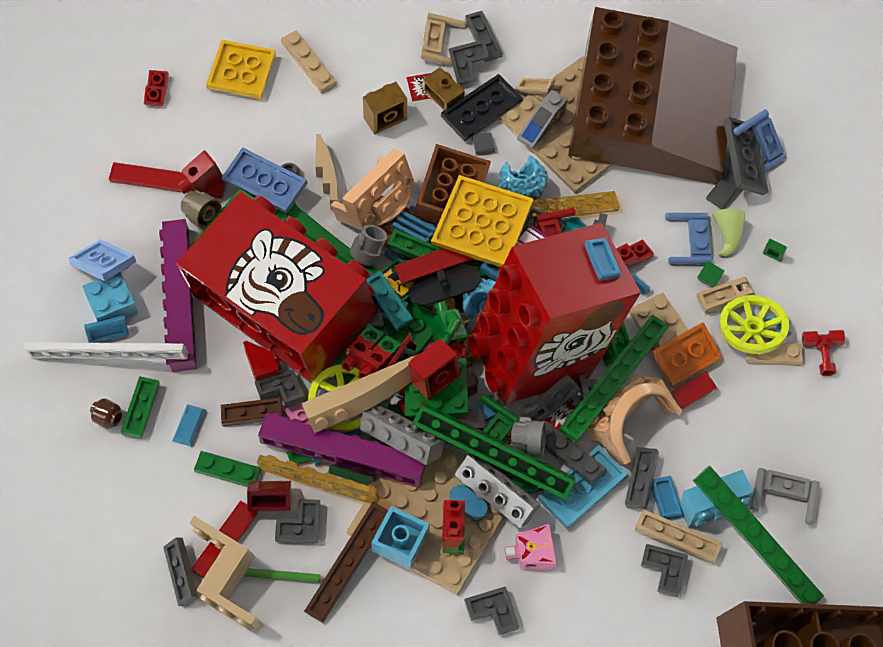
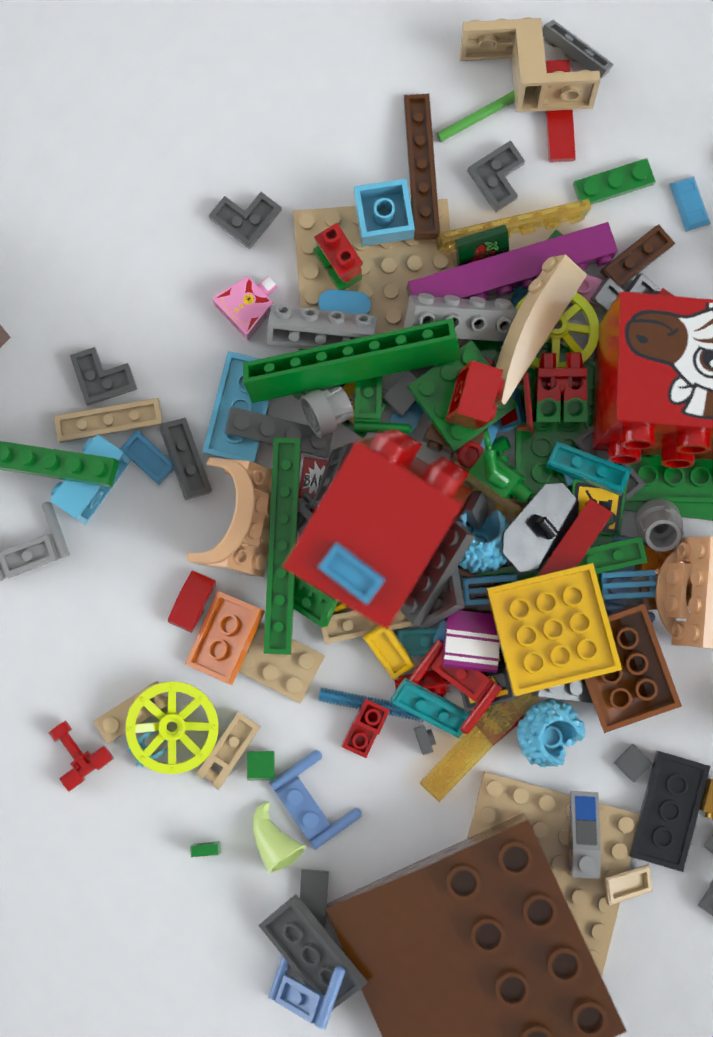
camera: 145 degrees right, 20 degrees up
(269, 496) = (549, 176): dark red brick -> none

